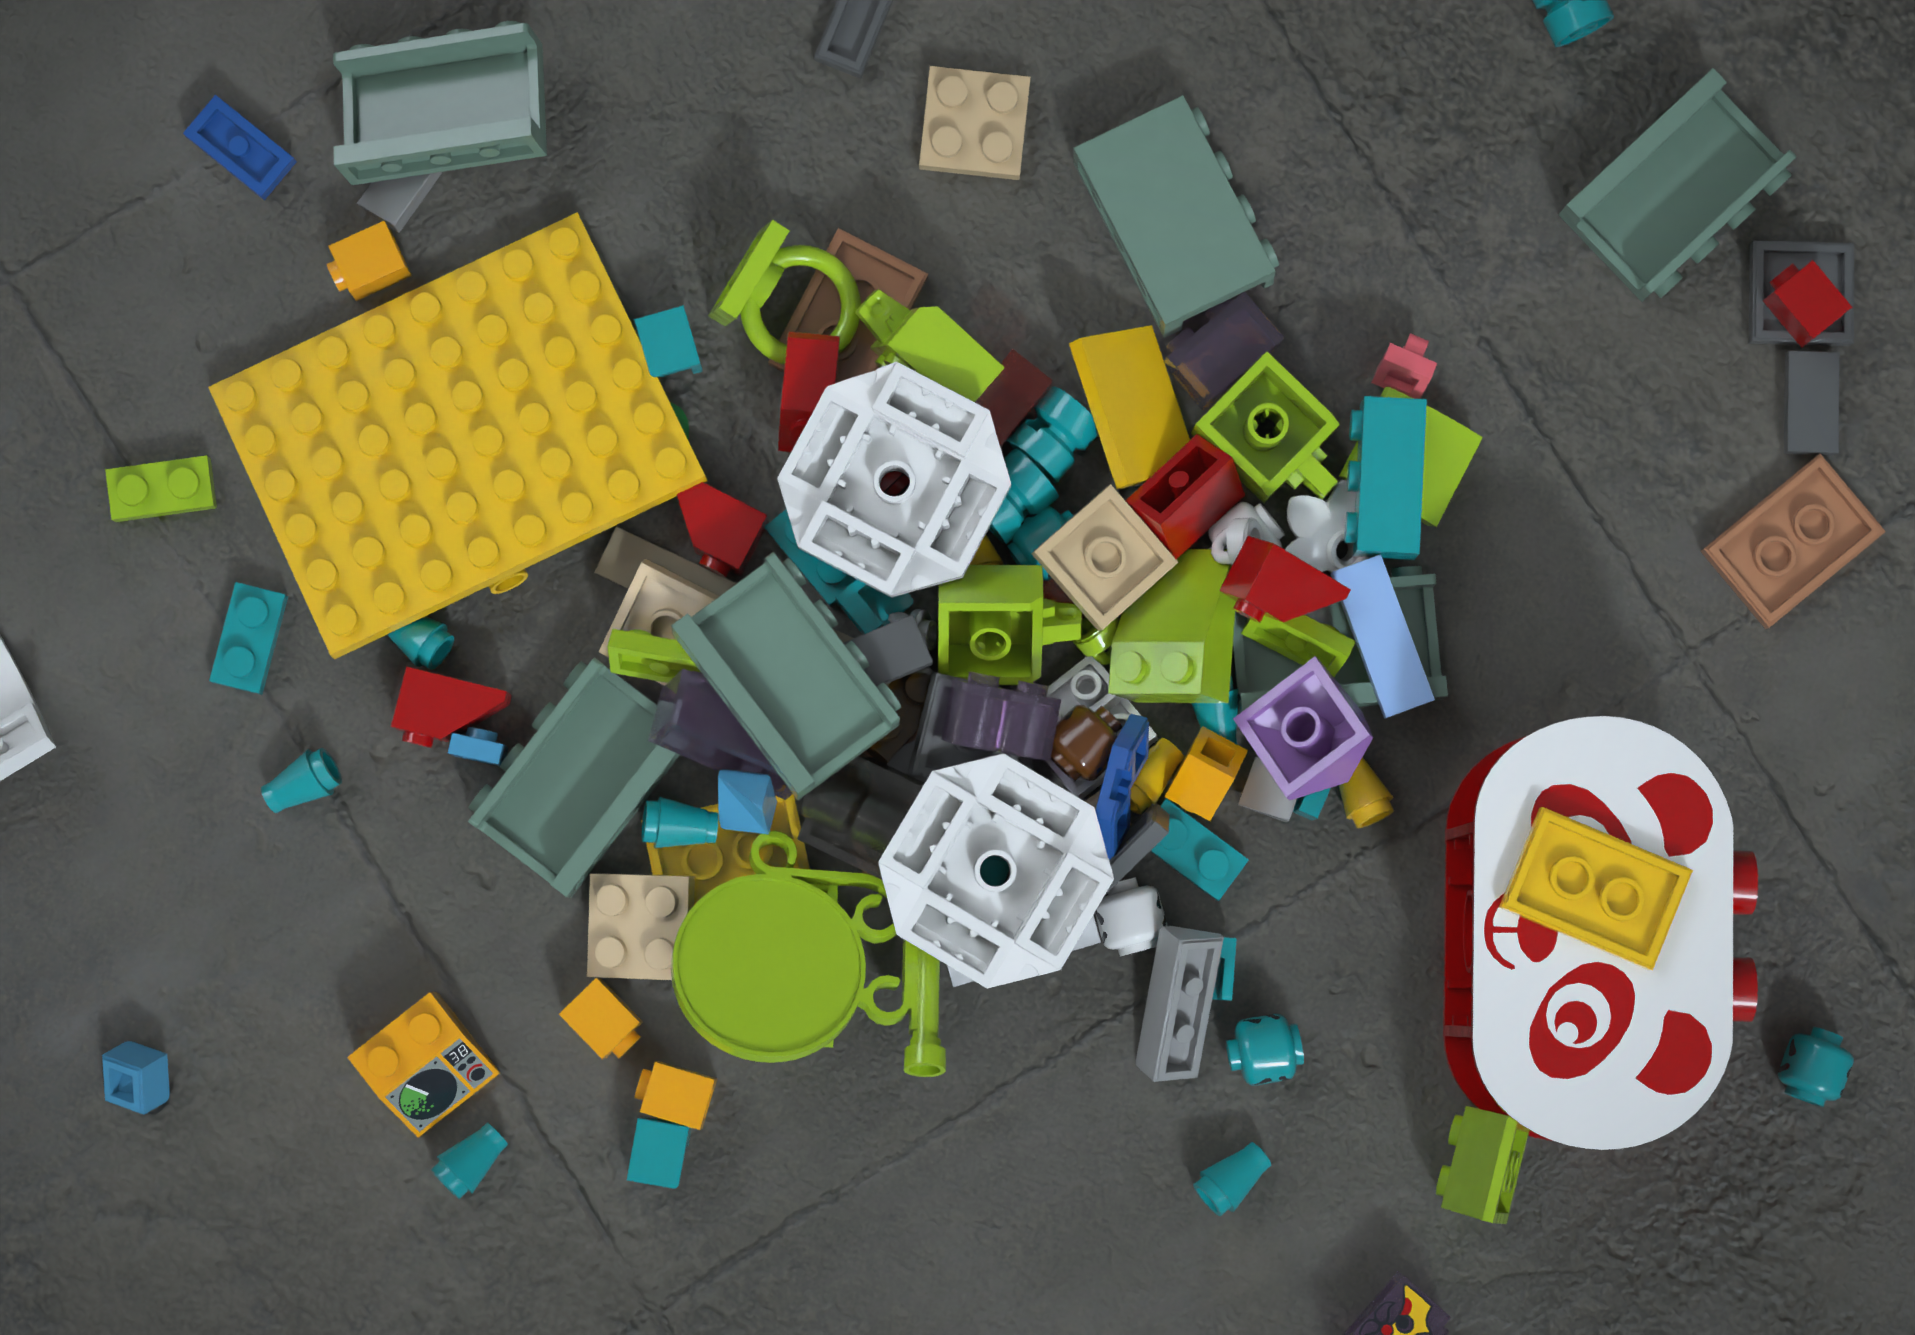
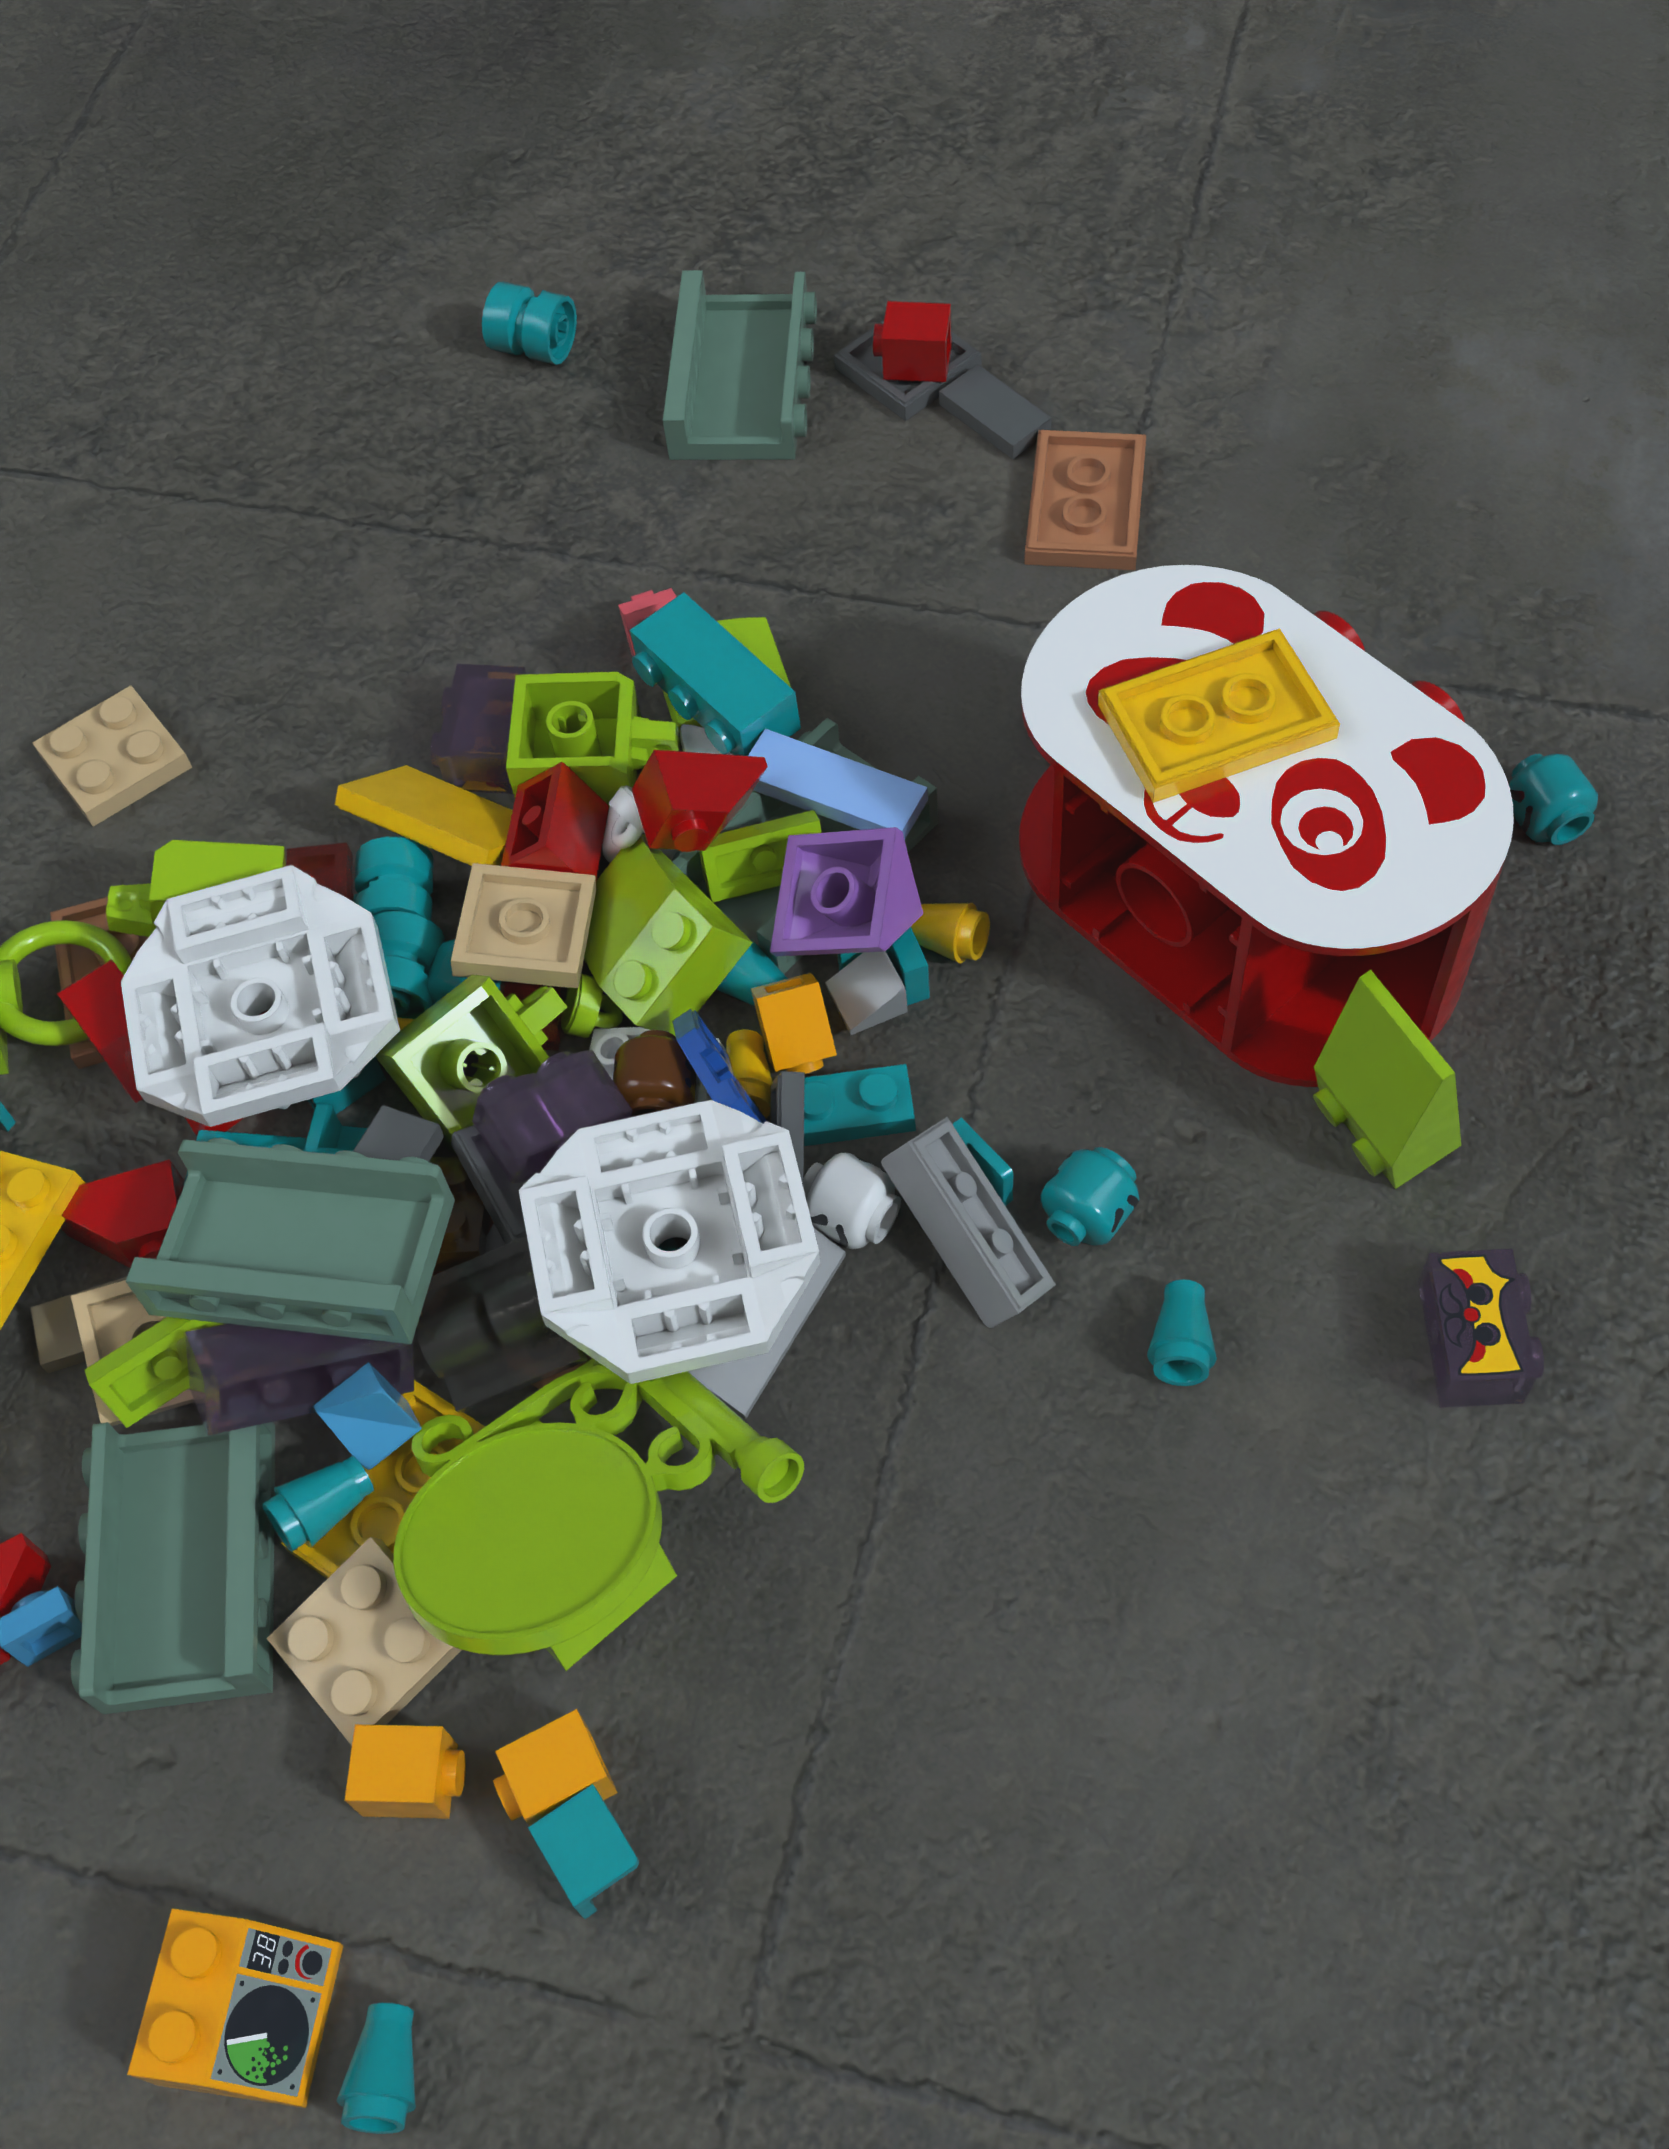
camera: 30 degrees left, 25 degrees down
(1174, 213) = (342, 670): sand green panel -> none

